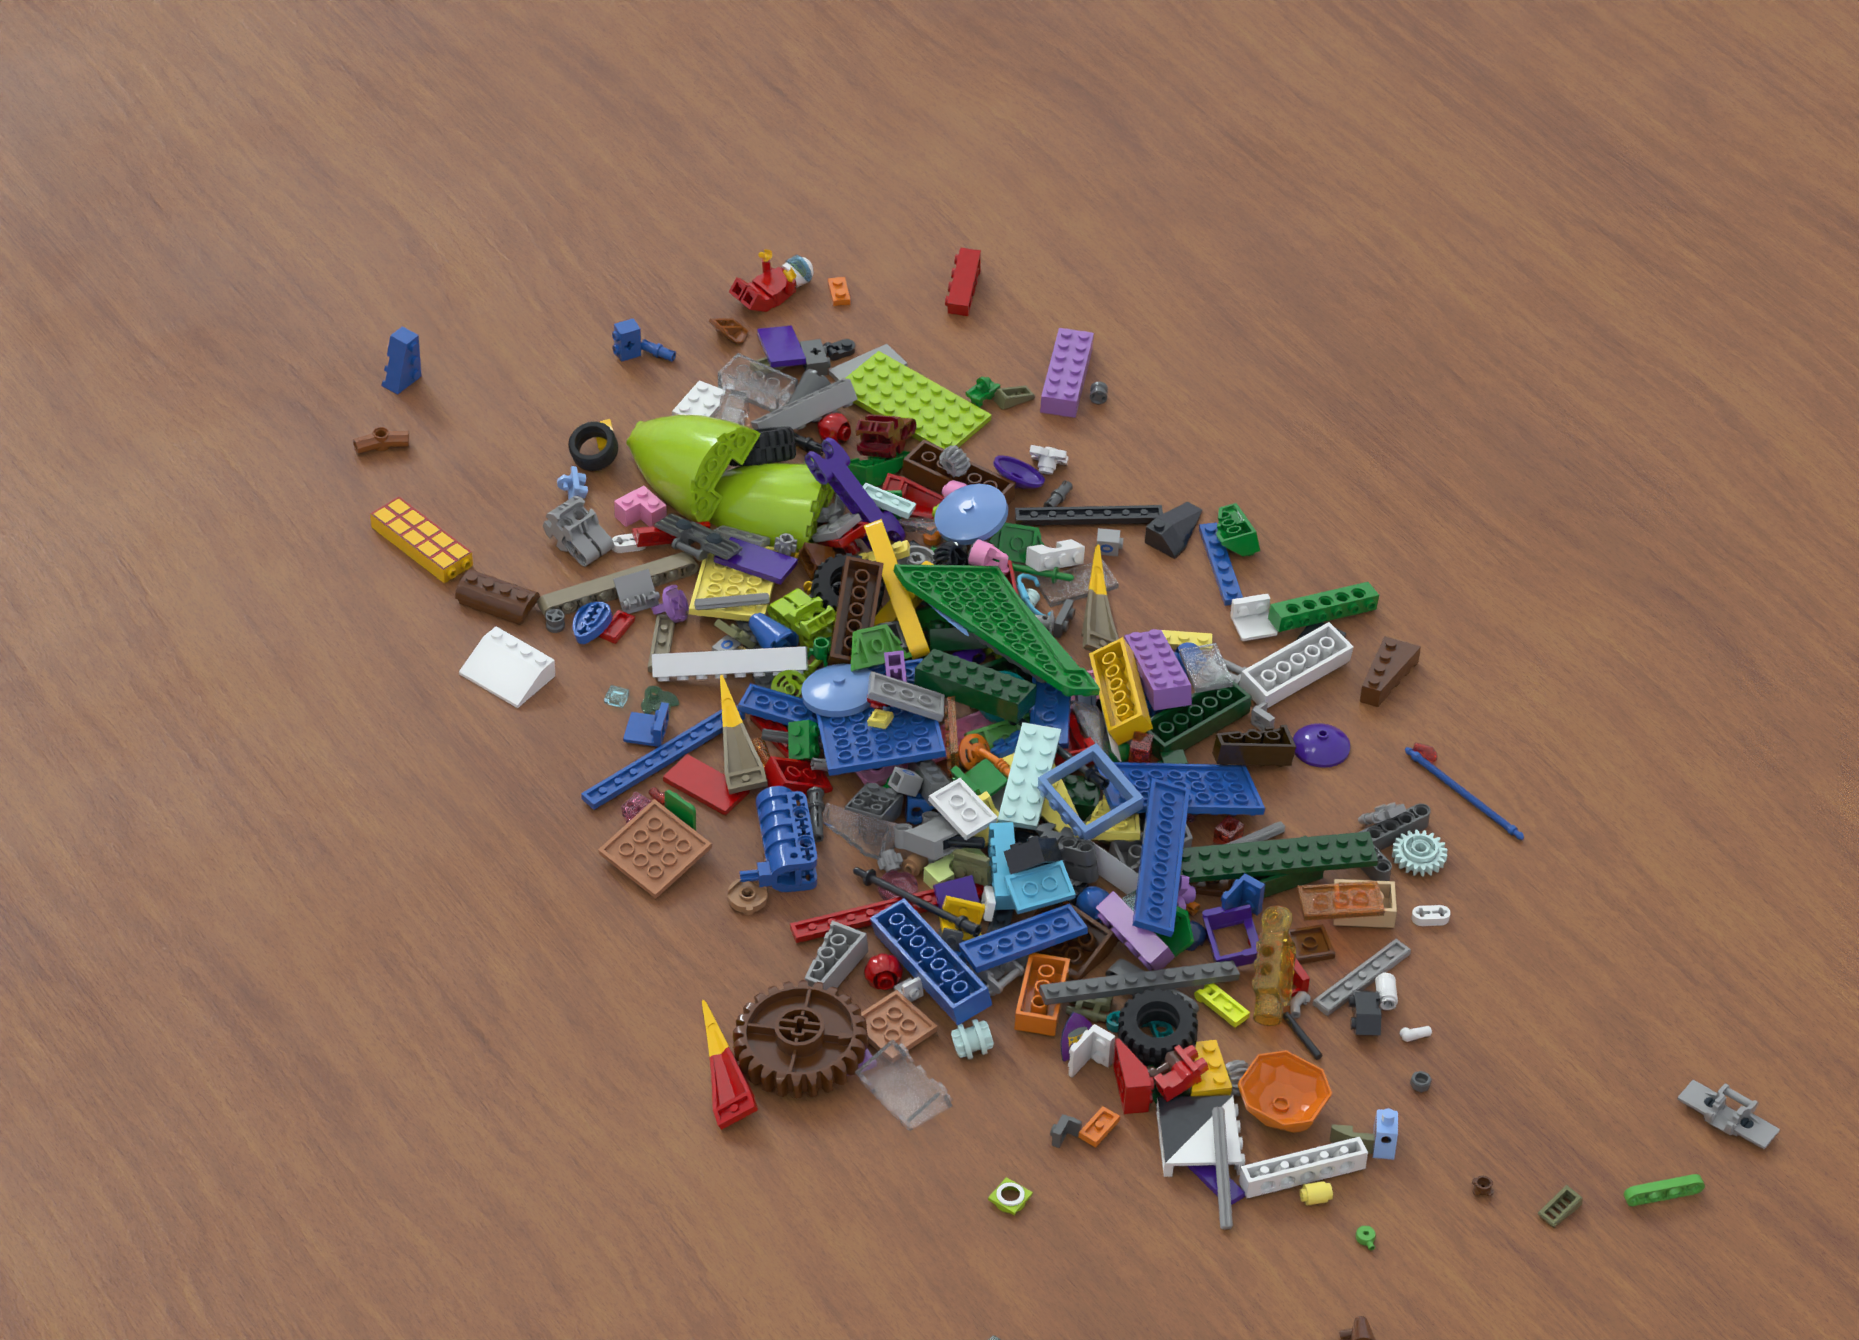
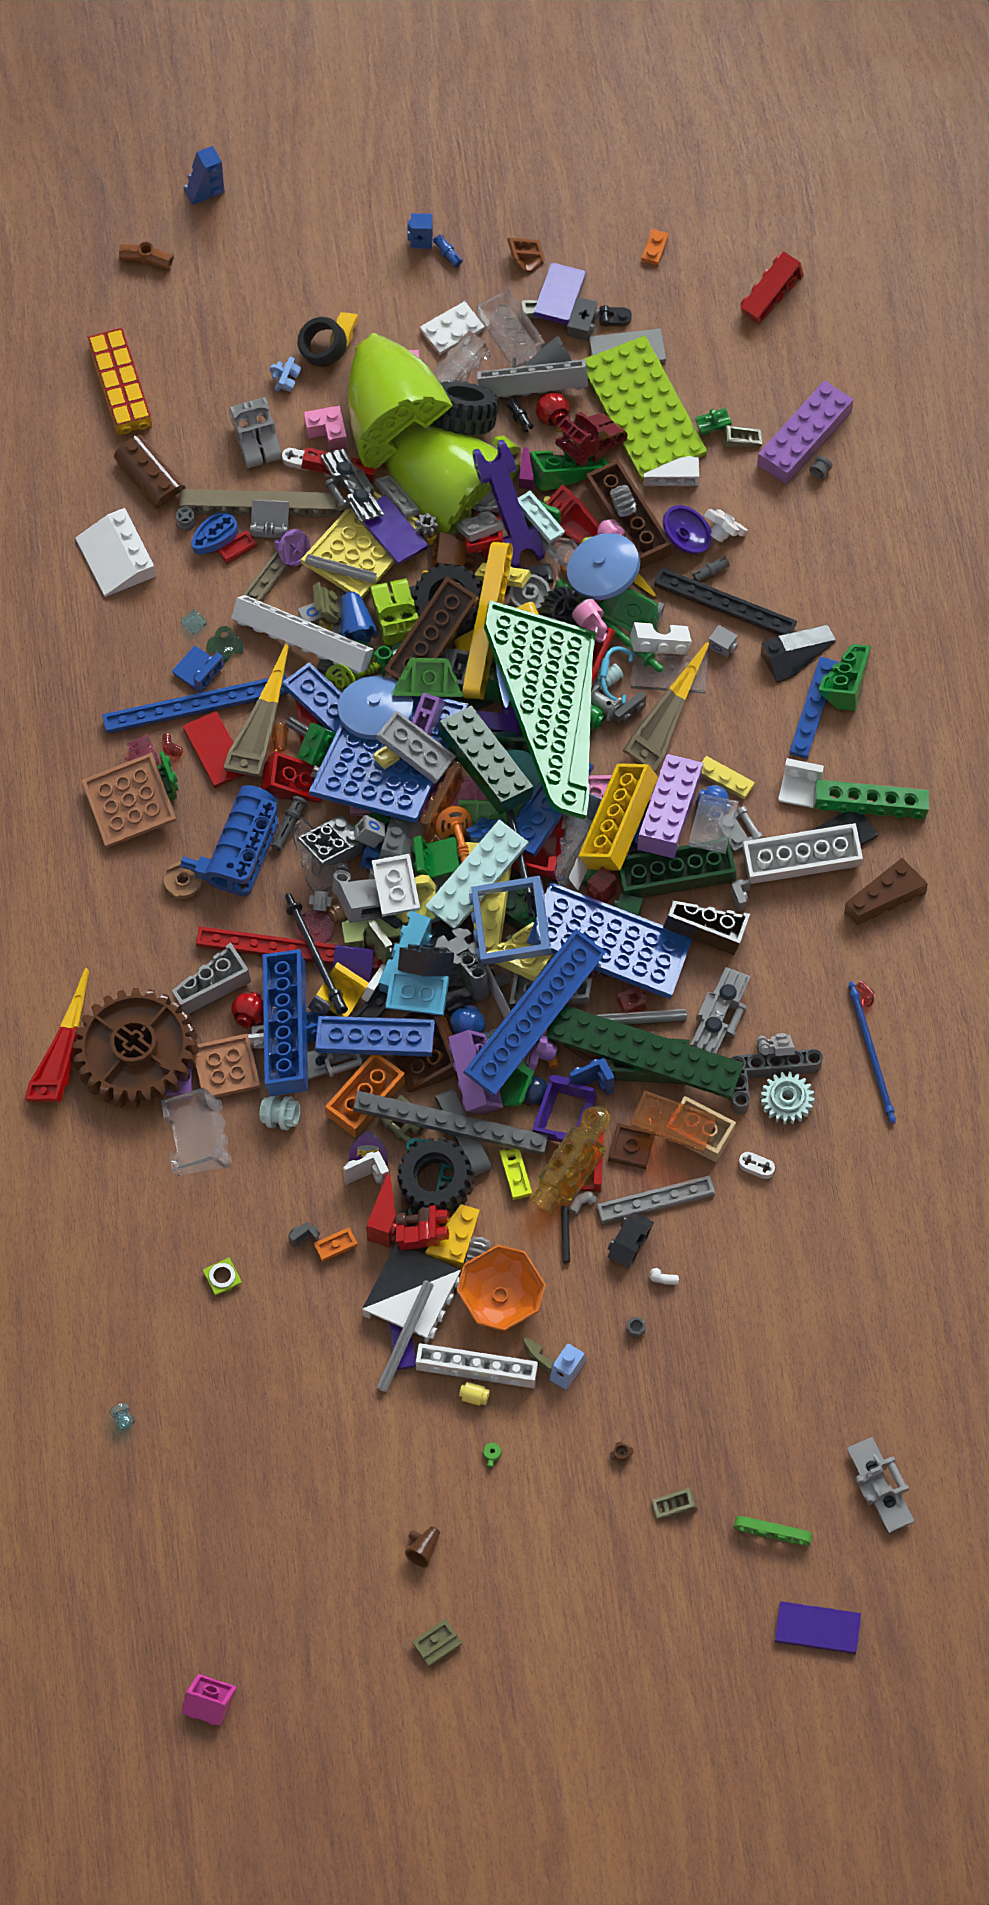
camera: 30 degrees right, 20 degrees up
(775, 284) = (592, 219): red piece -> none
(979, 437) = (675, 473): none -> white slope
(1308, 803) = (714, 1008): none -> light grey piece
(1321, 745) = (775, 953): dark purple dish -> none
(1387, 987) = (664, 1225): white head -> none
(1761, 1251) = (818, 1627): none -> dark purple tile

